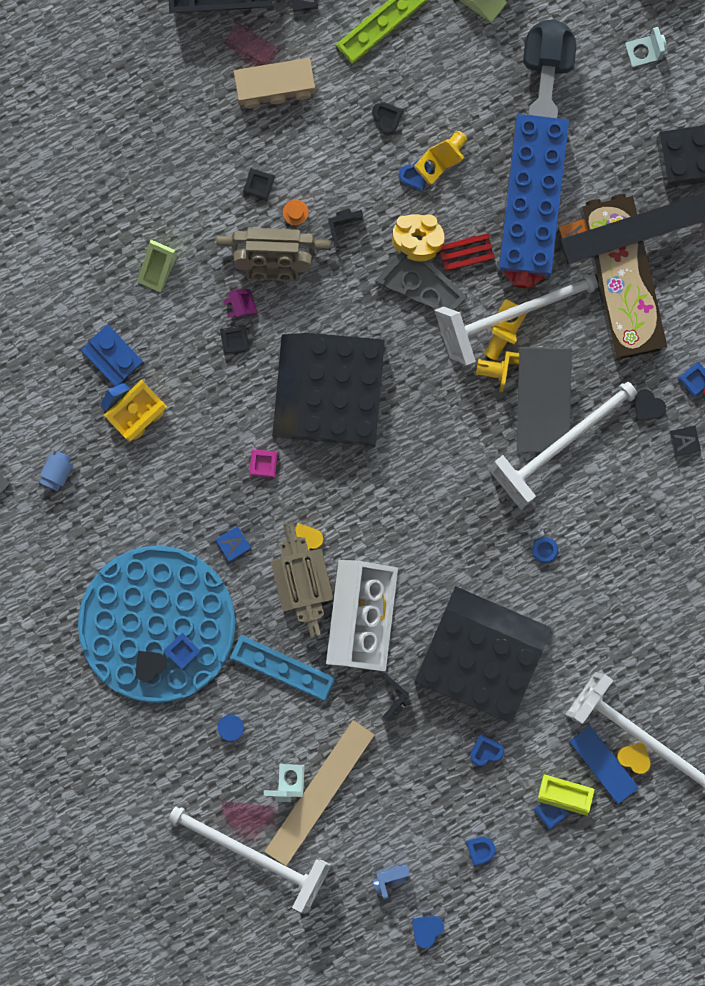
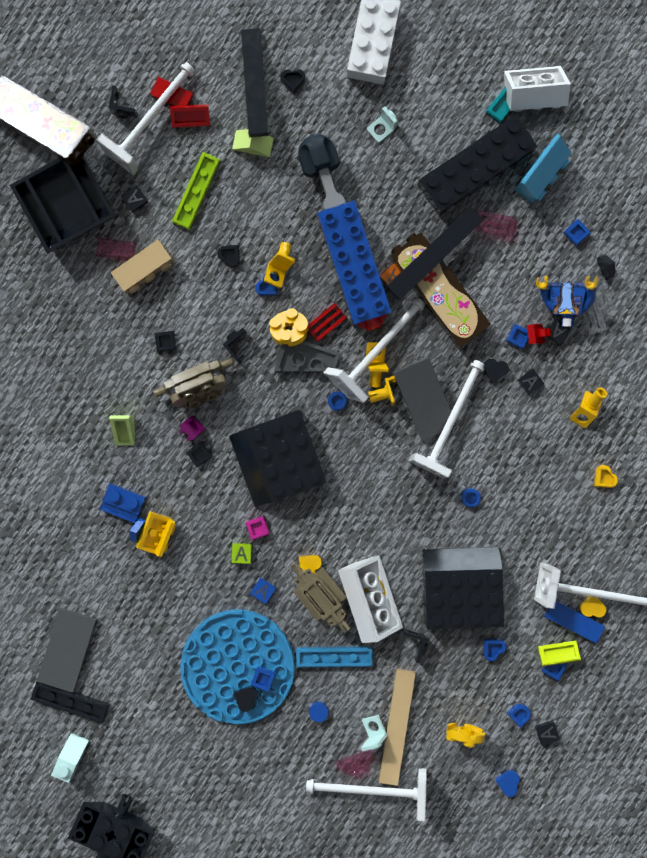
camera: 30 degrees left, 5 degrees up
(56, 471) = (122, 598): medium blue brick -> none
(228, 485) = (241, 553): none -> lime tile
(295, 212) = (199, 349): orange plate -> none
(395, 875) = (468, 760): medium blue bracket -> none
(401, 837) = (467, 734): none -> yellow plate
(435, 354) = (337, 401): none -> blue tile
(504, 889) = (547, 733): none -> black tile

